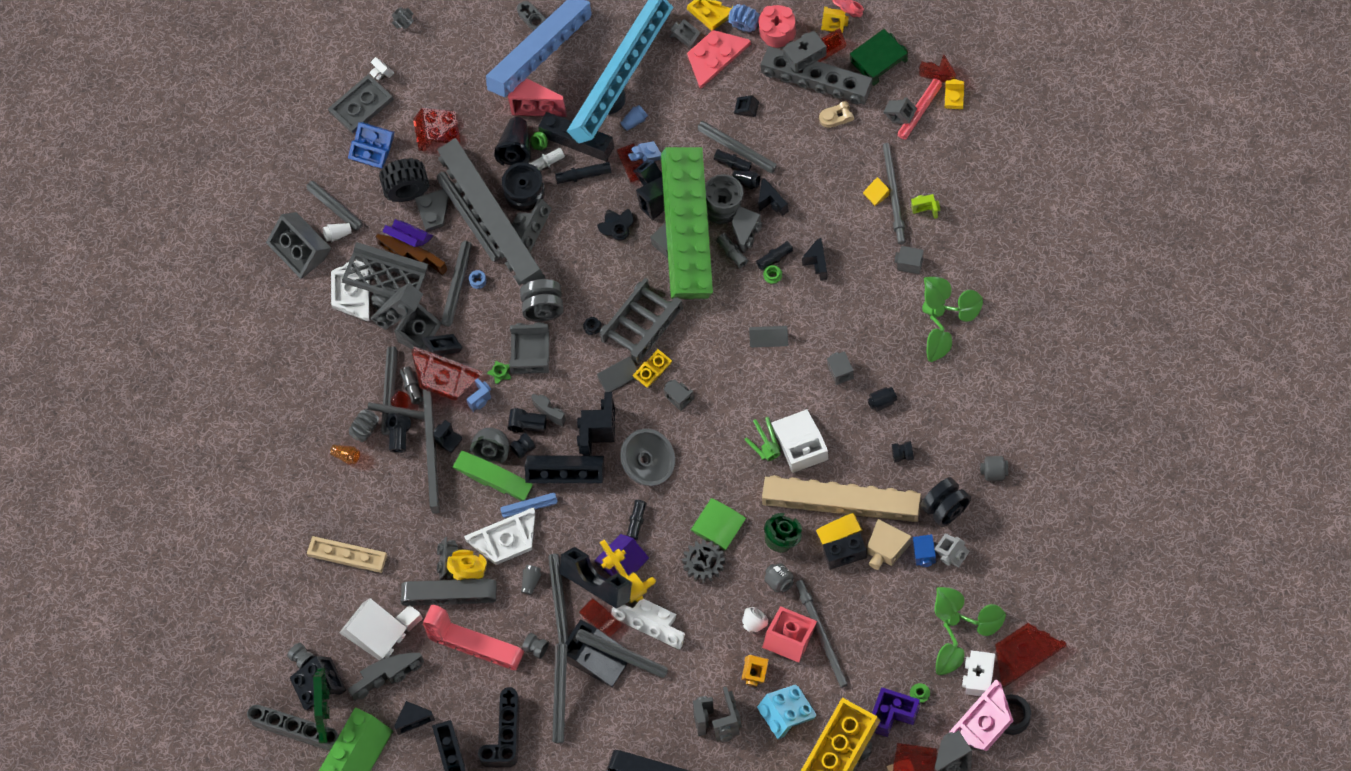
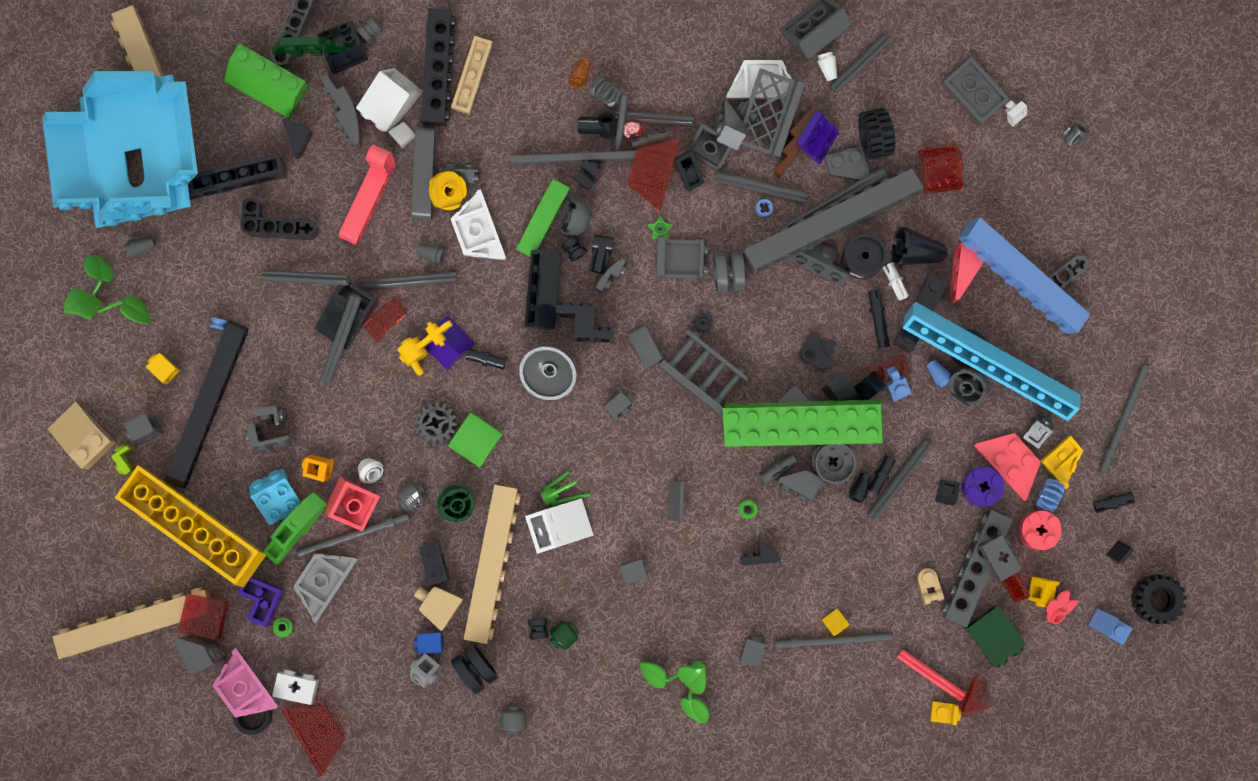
camera: 80 degrees right, 20 degrees up
(328, 593) = (436, 19): none -> black brick
(371, 145) = (926, 101): blue slope -> none
(480, 397) = (628, 207): medium blue bracket -> none
(535, 645) = (361, 256): dark grey wheel -> none
(538, 502) = (511, 253): medium blue axle -> none
(539, 141) = (918, 274): bright green plate -> none
(578, 568) = (432, 301): black arch -> none
(645, 89) = (968, 386): none -> dark grey cylinder
(652, 368) = (650, 381): yellow slope -> none
(652, 621) = (380, 369): white bracket -> none
(739, 74) = (992, 481): none -> dark purple brick
(769, 195) = (838, 510): black slope -> none
(774, 255) = (768, 512): black pin -> none
(813, 683) = (293, 527): none -> bright green slope
(839, 529) = (458, 560): yellow slope -> none
(871, 658) = (322, 581): none -> light grey wing
(882, 398) = (598, 612): black brick -> none
(900, 111) = (926, 654): dark grey brick -> none
(906, 428) = (564, 635): none -> dark green head
(924, 203) = (817, 670): lime bracket -> none
(946, 607) = (354, 664): bright green plant -> none

